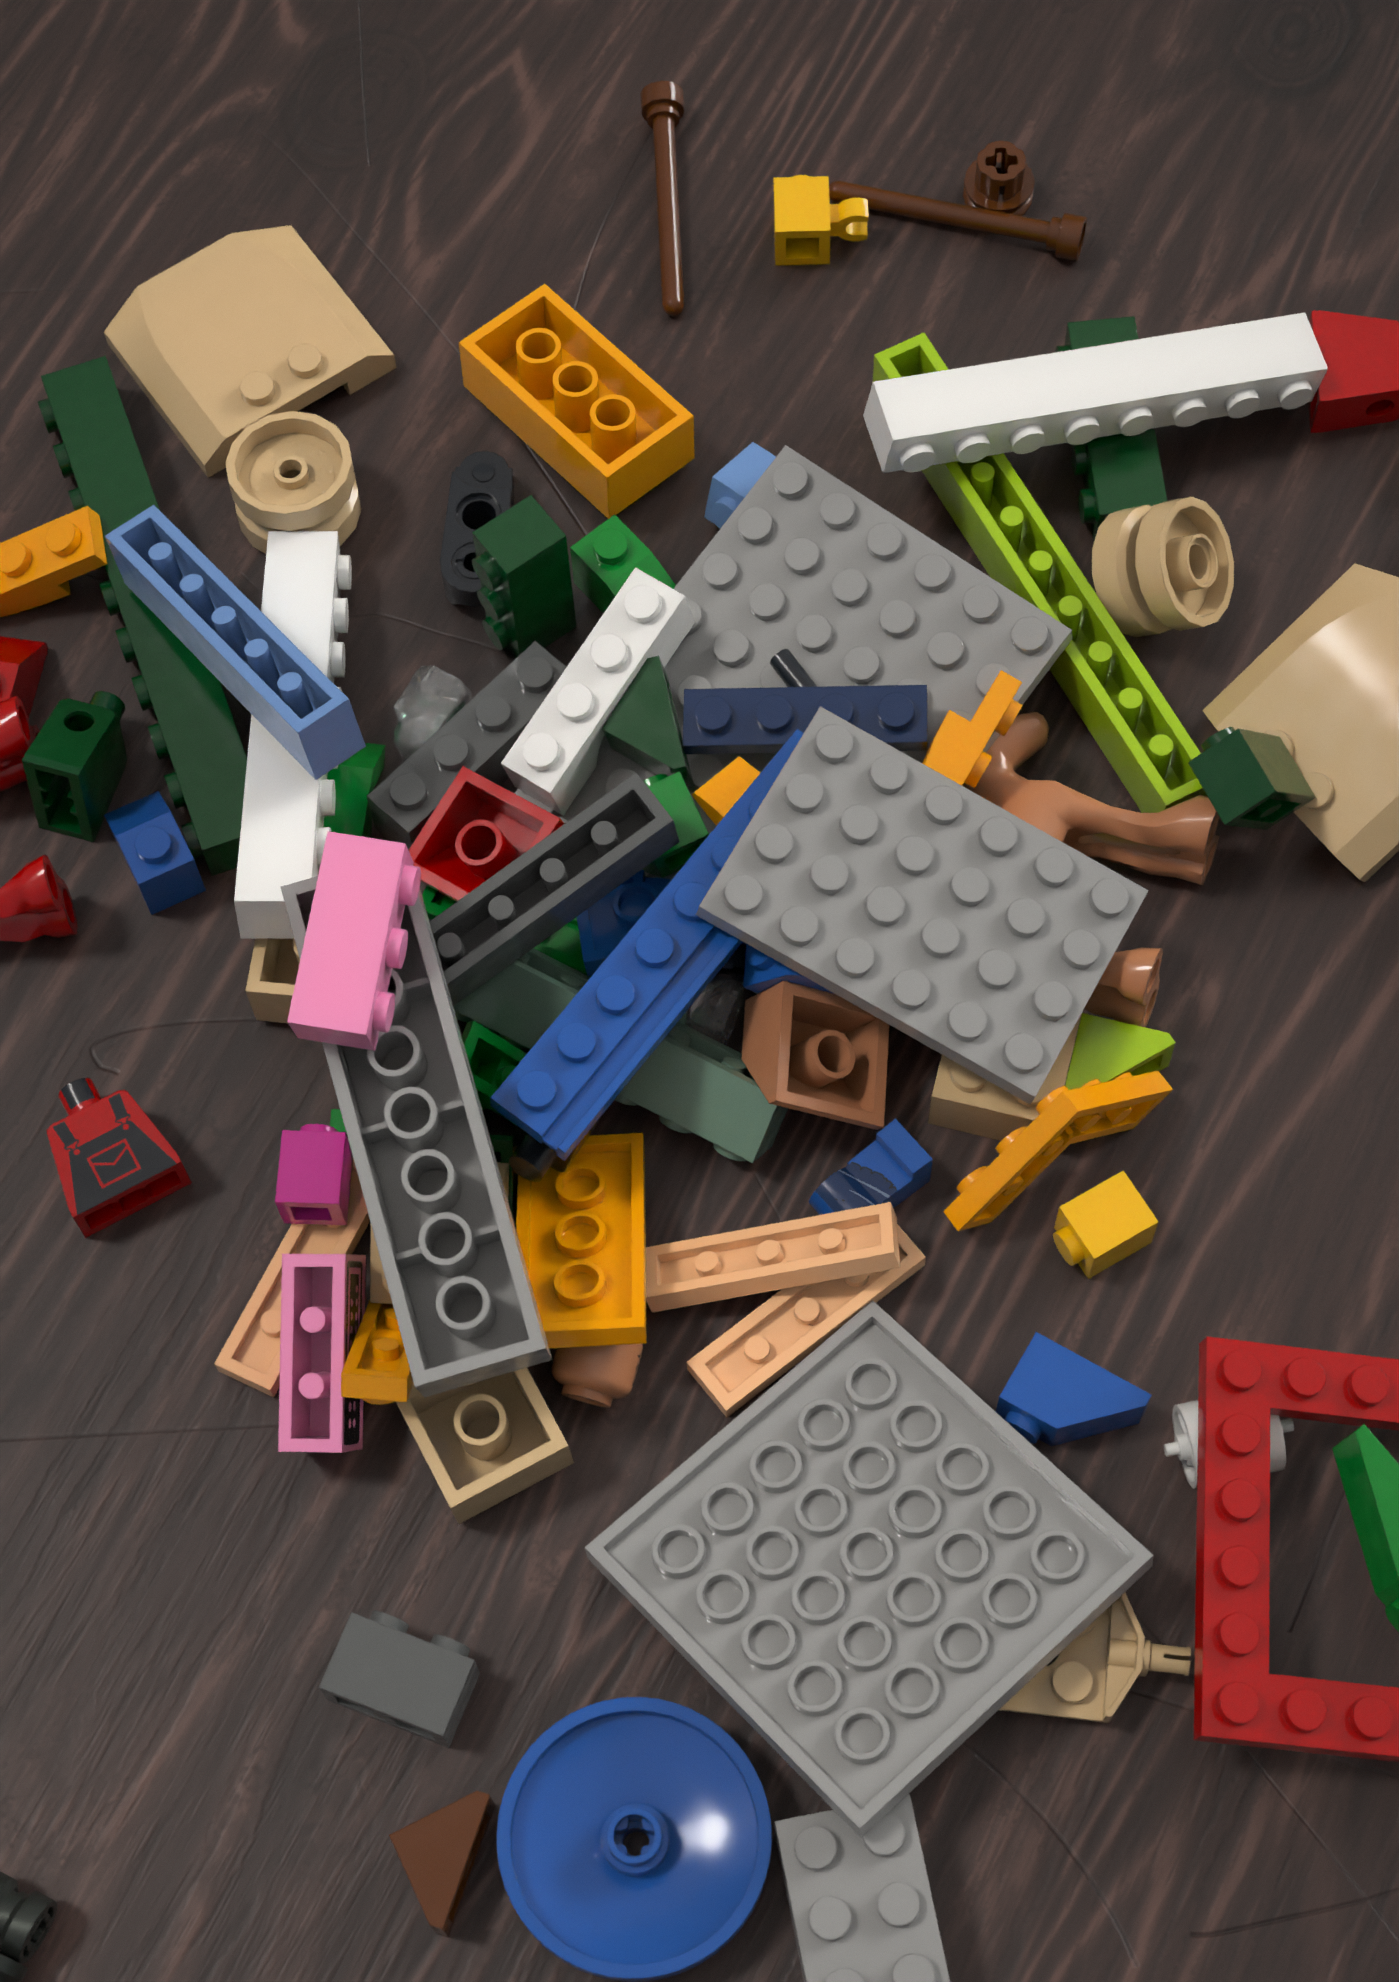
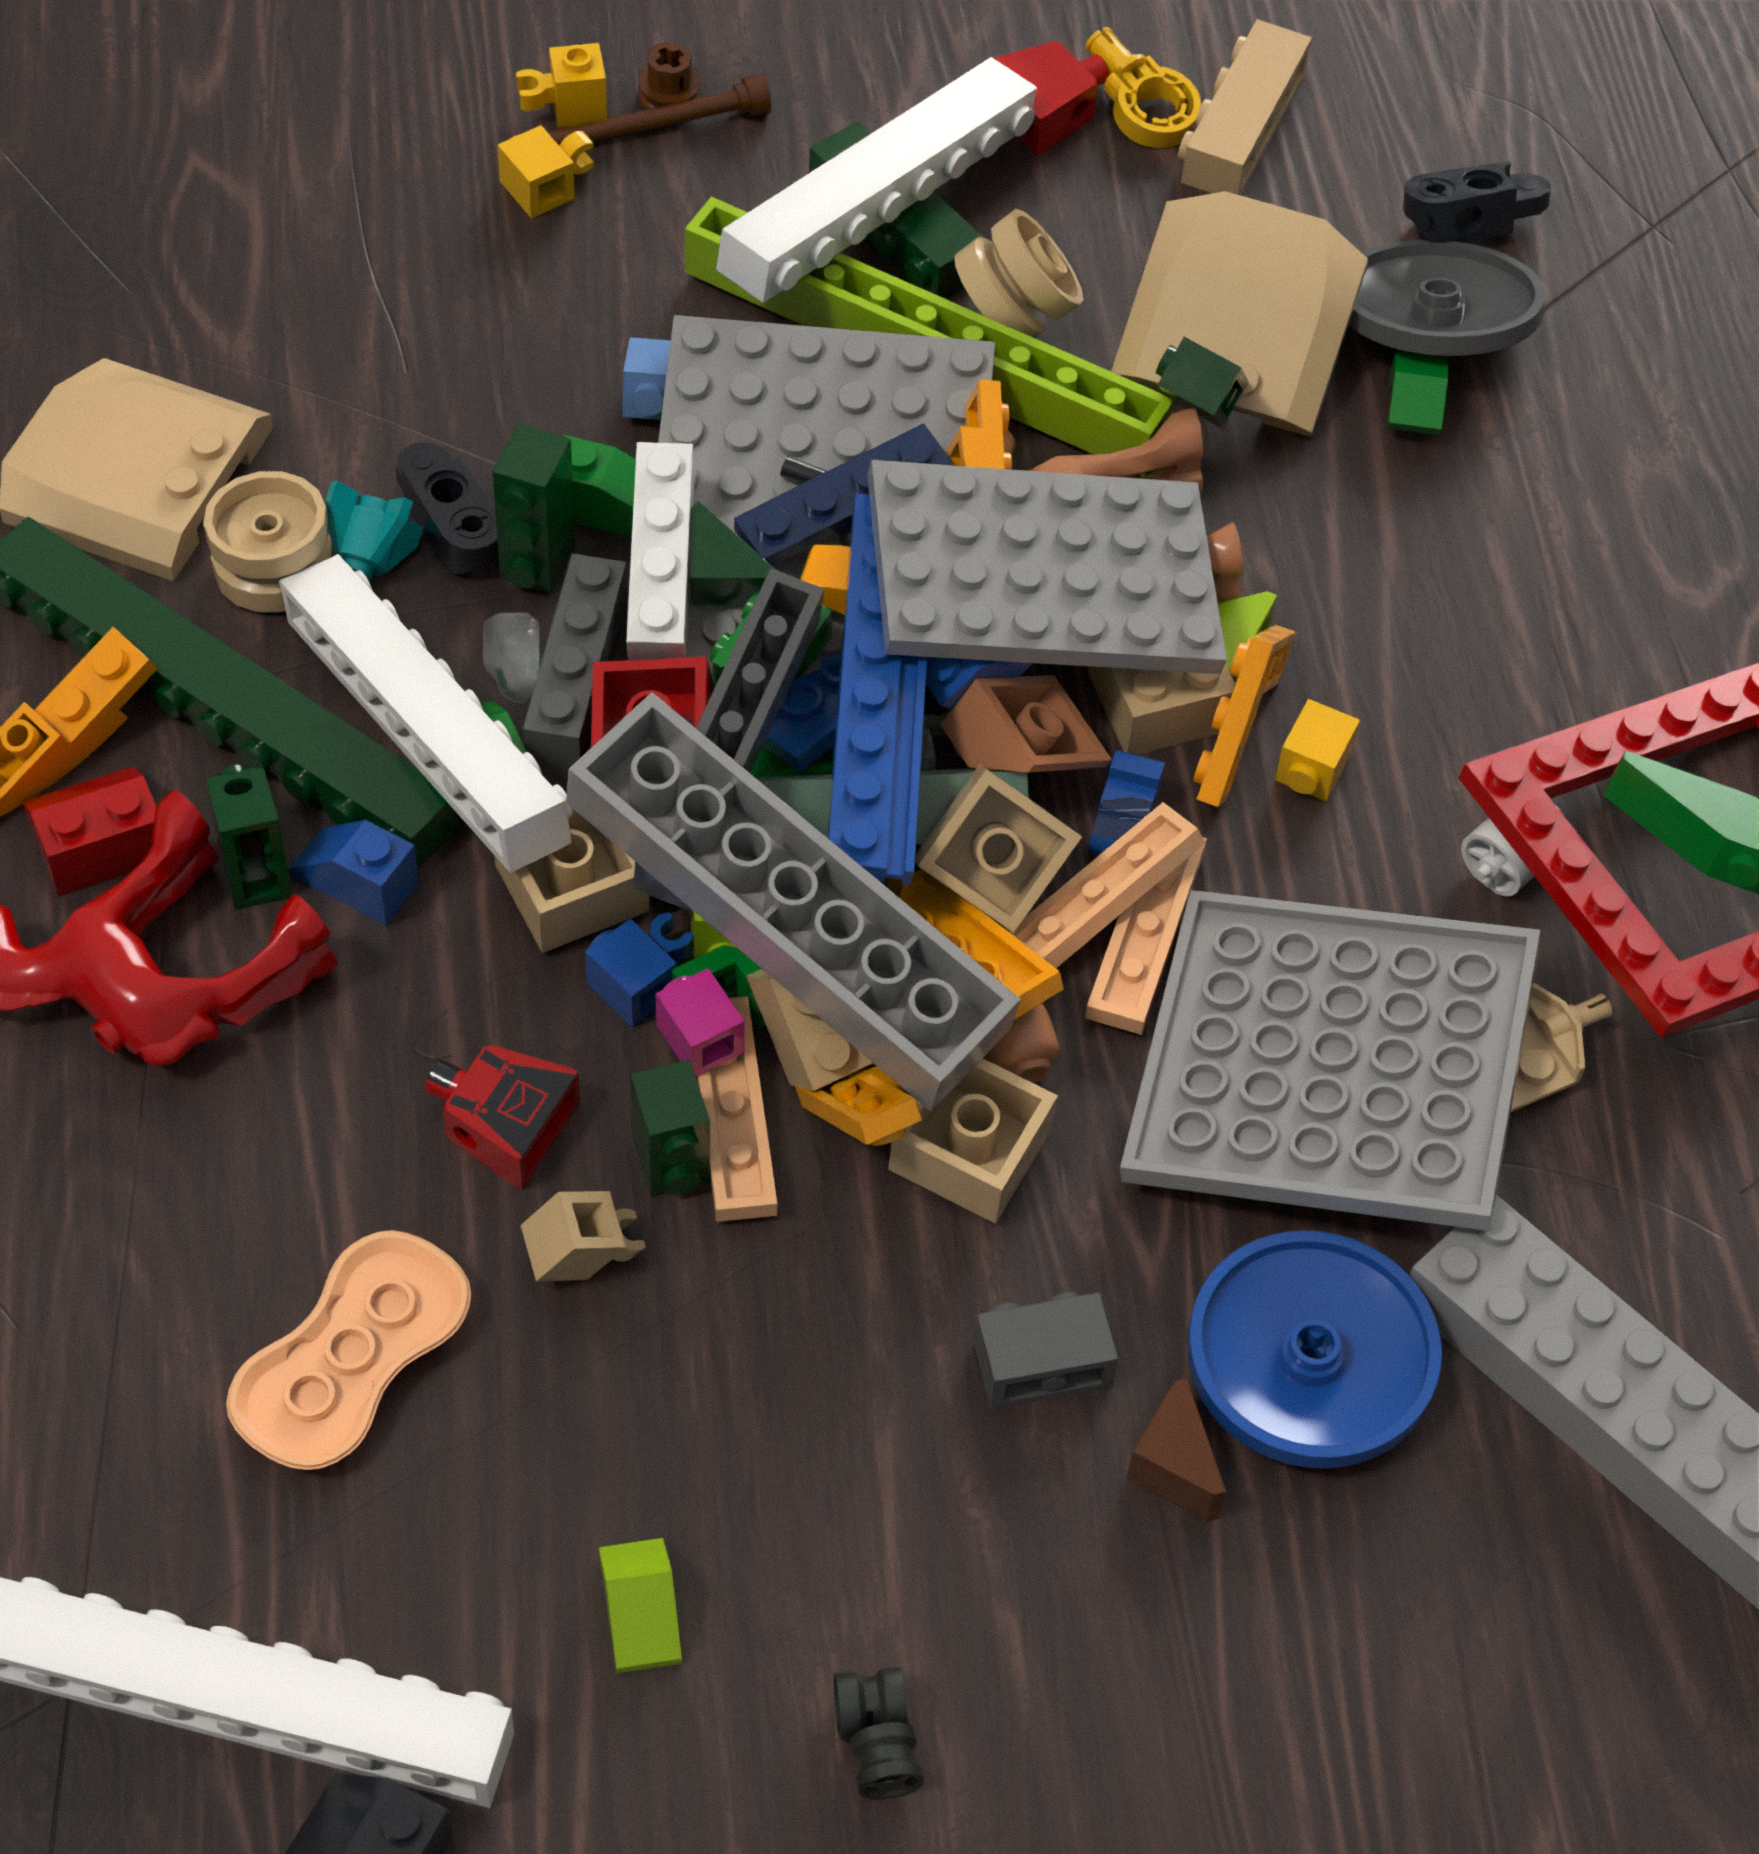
camera: 40 degrees left, 10 degrees down
(79, 1319) = (578, 1236): none -> tan brick
(216, 1264) = (670, 1128): none -> dark green brick
(236, 642) = (344, 648): medium blue brick -> none
(302, 1083) = (632, 967): none -> blue brick
(318, 1326) = (808, 1141): bright pink brick -> none
(353, 941) = (668, 770): bright pink brick -> none
(385, 523) = (369, 530): none -> teal brick
(577, 401) = (456, 372): light orange brick -> none
(662, 109) = (356, 142): reddish brown piece -> none
(698, 1160) = (996, 848): none -> tan brick
(898, 145) = (573, 85): none -> yellow brick
(1066, 1397) = (1382, 871): blue slope -> none

